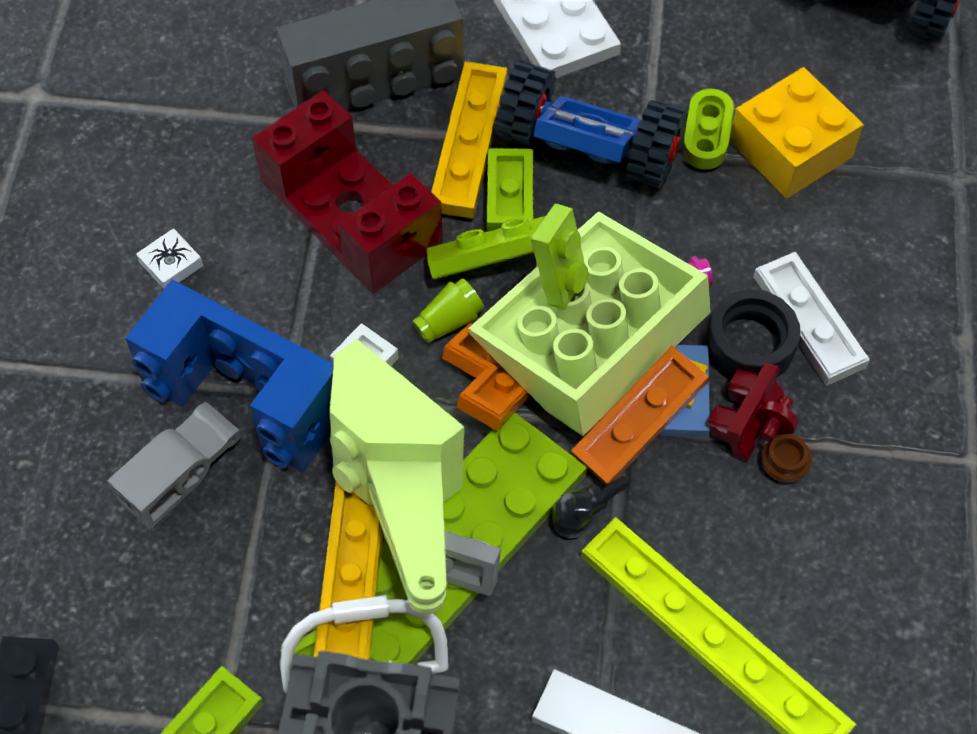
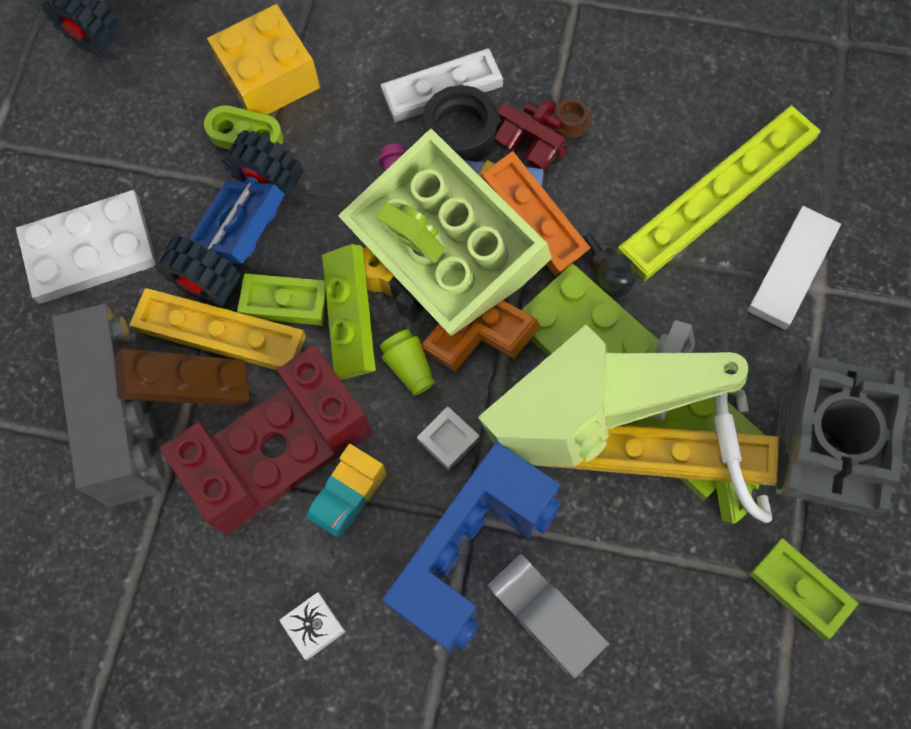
camera: 80 degrees left, 10 degrees up
(303, 270) = (346, 491): none -> leg
(402, 104) = (180, 378): none -> reddish brown plate

